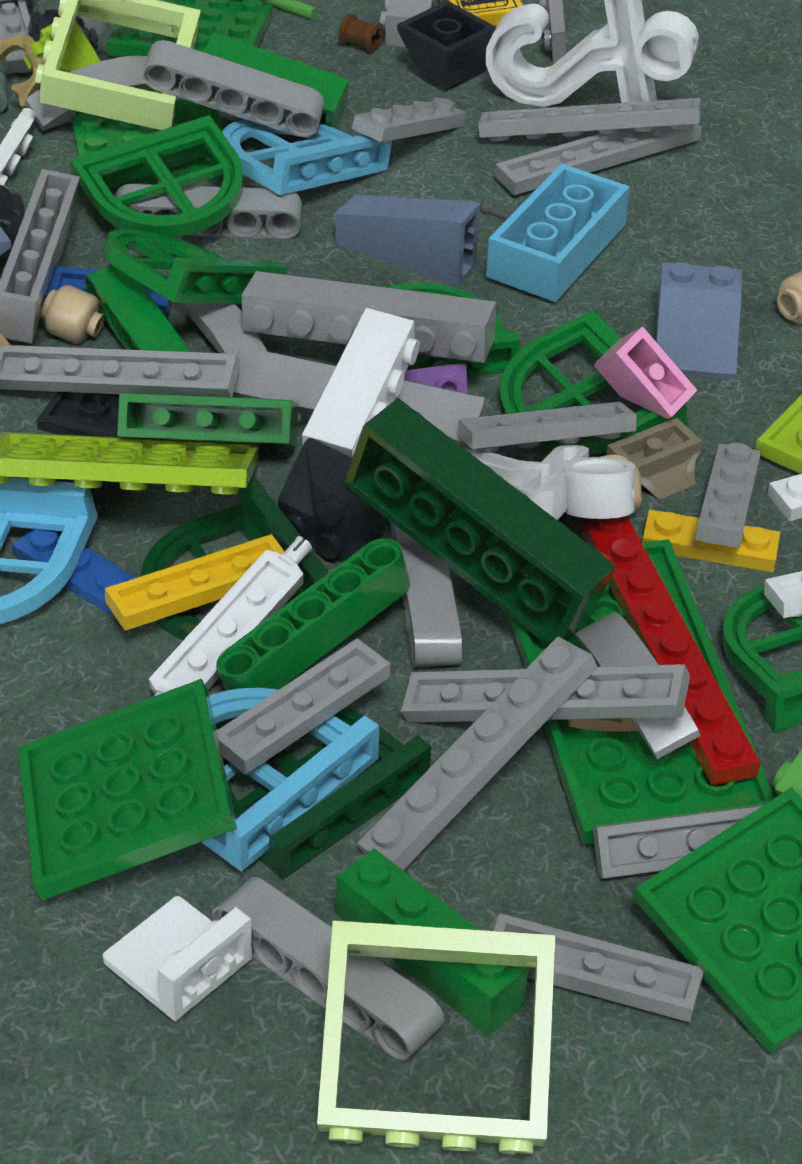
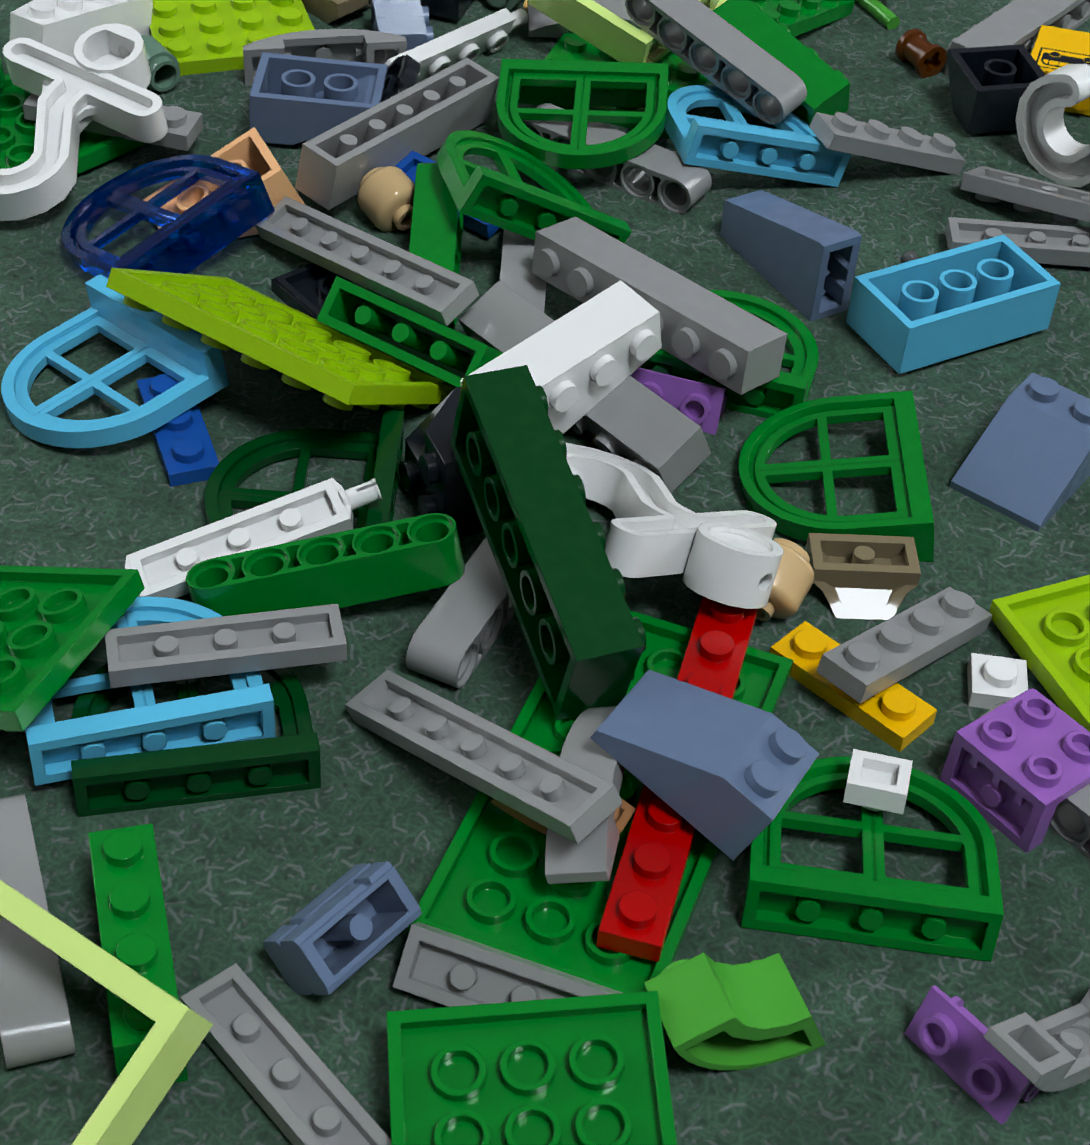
camera: 30 degrees right, 0 degrees up
(184, 584) = (239, 481): yellow plate -> none
(479, 753) = (352, 781): light grey plate -> none
(550, 854) = (342, 928): none -> sand blue brick
(560, 424) = (765, 488): light grey plate -> none
(645, 374) = (900, 474): bright pink slope -> none
(702, 623) = (707, 757): none -> sand blue slope

